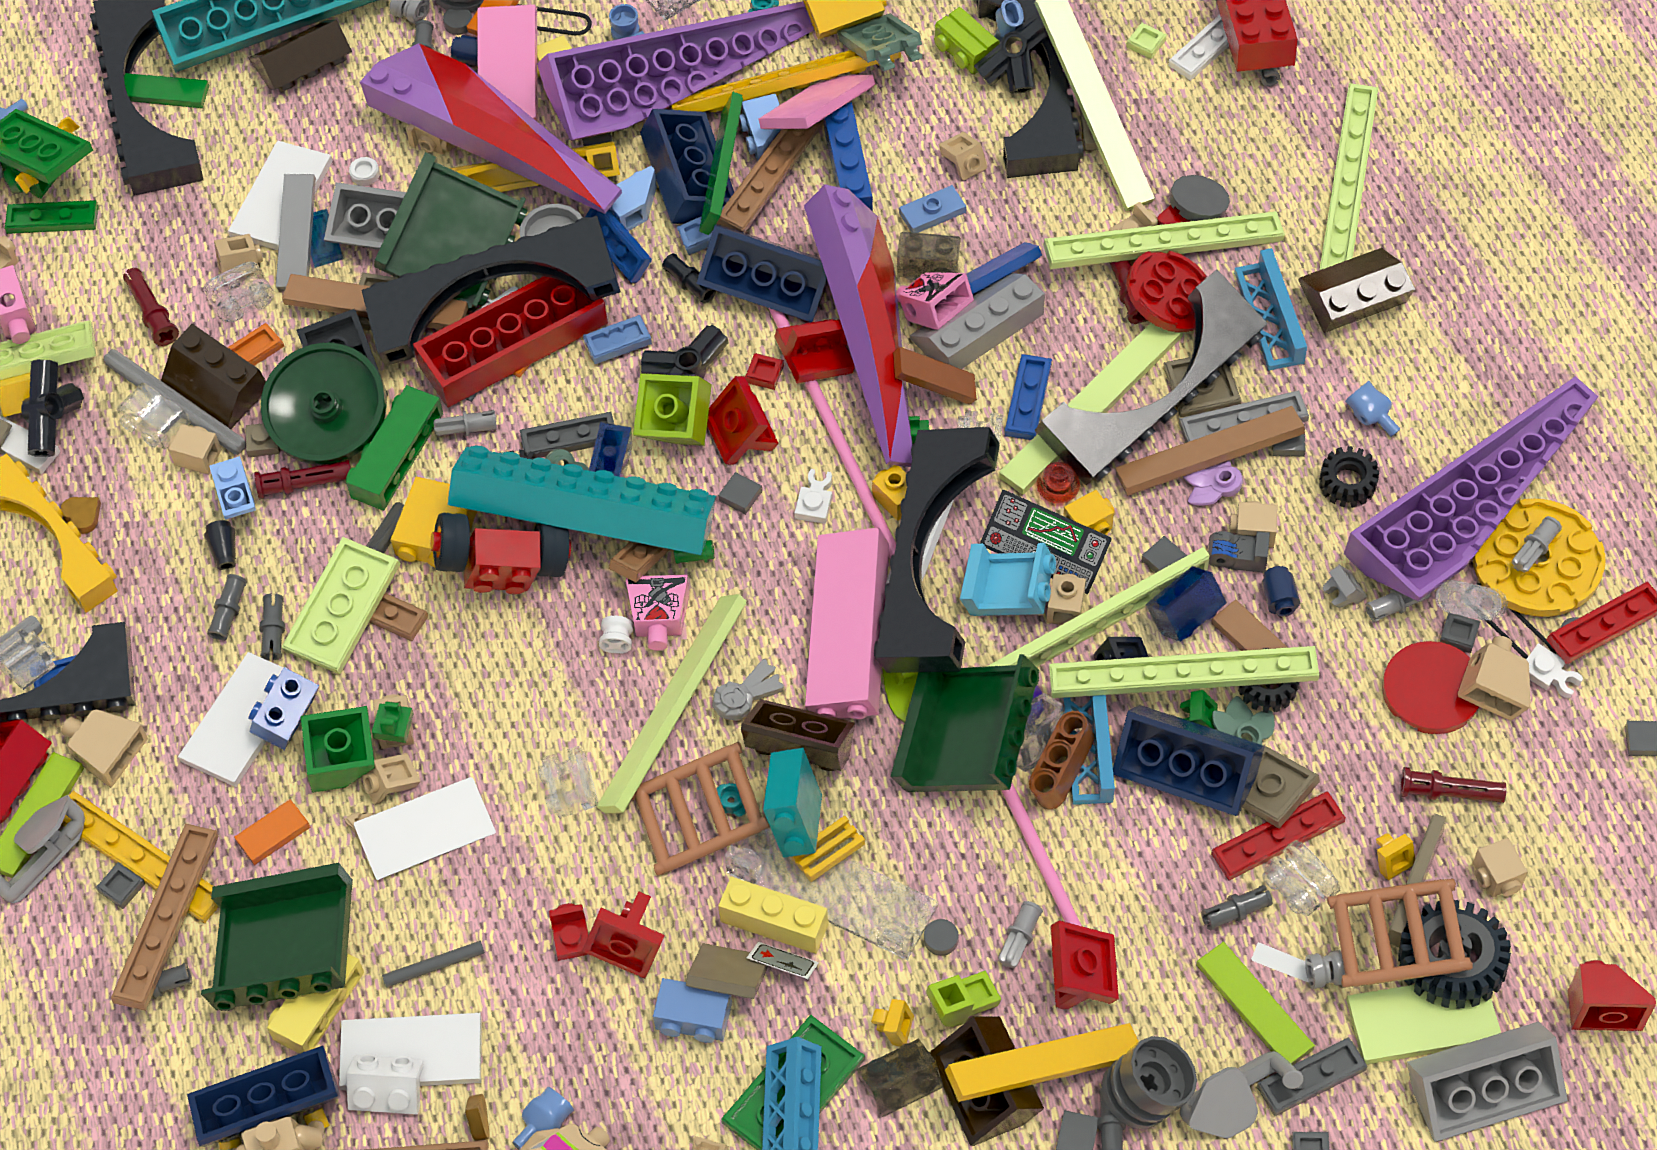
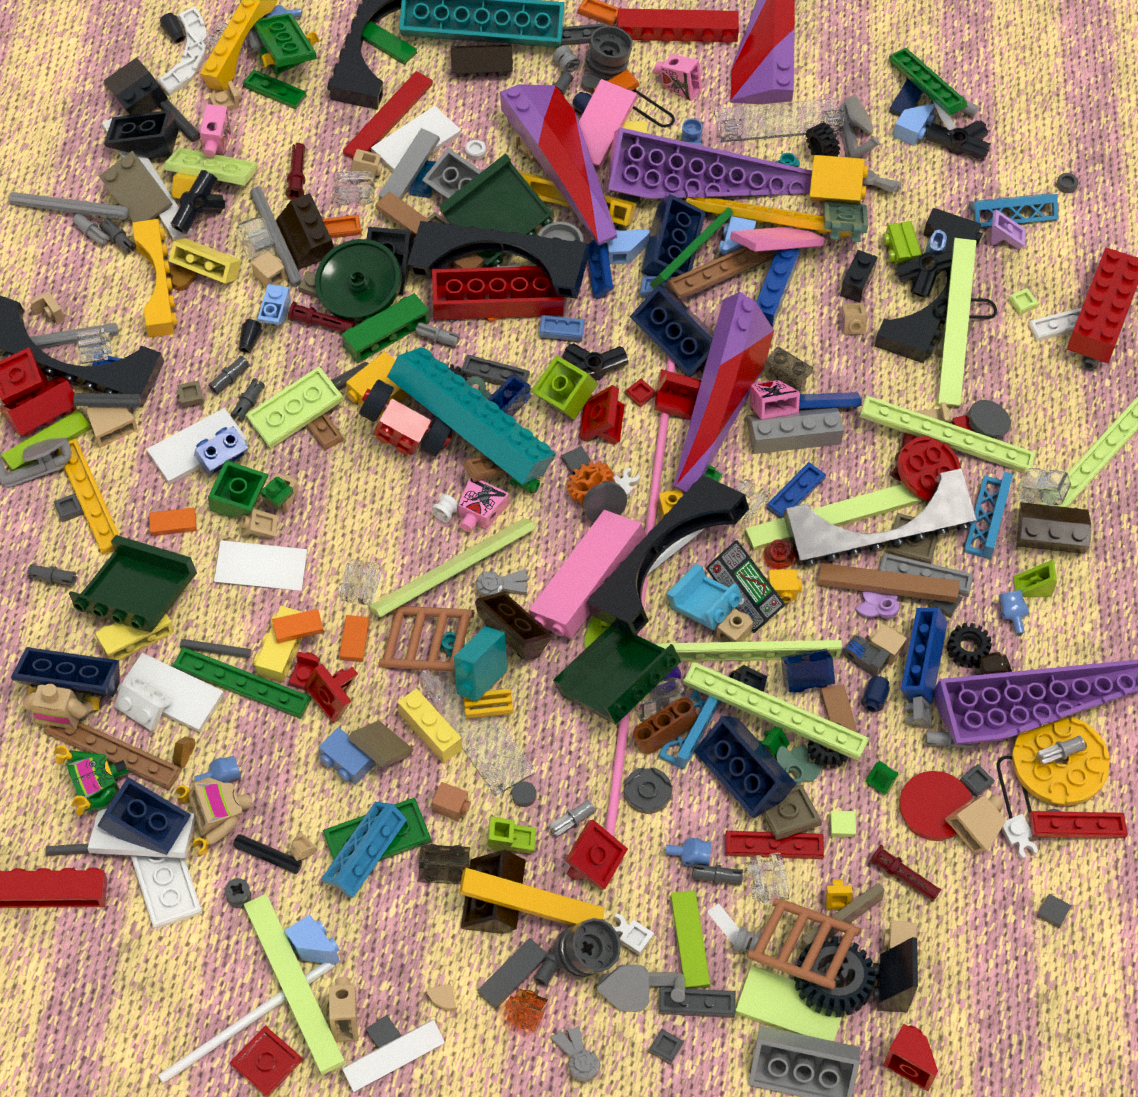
camera: 25 degrees right, 0 degrees up
(89, 718) = (107, 400): none -> dark grey axle
(102, 476) = (204, 260): none -> light yellow brick
(164, 917) = (79, 538): medium nougat tile -> none
(191, 656) = (190, 394): none -> dark tan plate
(224, 180) = (389, 114): none -> red tile
(495, 989) = (242, 683): none -> green tile
(516, 913) = (276, 657): none -> light yellow brick
(529, 878) = (297, 625): none -> orange tile
(604, 857) = (354, 638): none -> orange tile
(687, 277) = (628, 308): black pin -> none
(778, 511) = (587, 478): none -> orange gear
(782, 960) = (419, 756): sticker -> none
(813, 517) = (606, 496): none -> dark grey tile
(860, 994) = (451, 801): none -> nougat brick
(895, 1022) = (462, 829): yellow tile -> none
(932, 209) = (812, 343): medium blue plate -> none
(934, 375) = (740, 447): dark orange tile -> none
(938, 102) = (858, 276): none -> black brick
(1060, 97) = (970, 316): none -> black piece
(1077, 851) = (643, 795): none -> dark grey tile
(1162, 554) = (815, 632): dark grey tile -> none
(1189, 896) = (692, 851): none -> medium blue piece
(1189, 1034) = (633, 936): none -> white plate
(1308, 514) = (924, 654): none -> blue brick
(1315, 245) = (1043, 486): none -> clear brick
(1341, 766) = (843, 823): none -> yellowish green tile
(1353, 686) = (882, 777): none -> green tile
(1378, 360) = (1037, 581): none -> lime slope
(1392, 485) = (993, 663): none -> dark brown head
(1471, 600) = (994, 763): clear brick -> none
(1532, 911) = (896, 977): none -> black slope

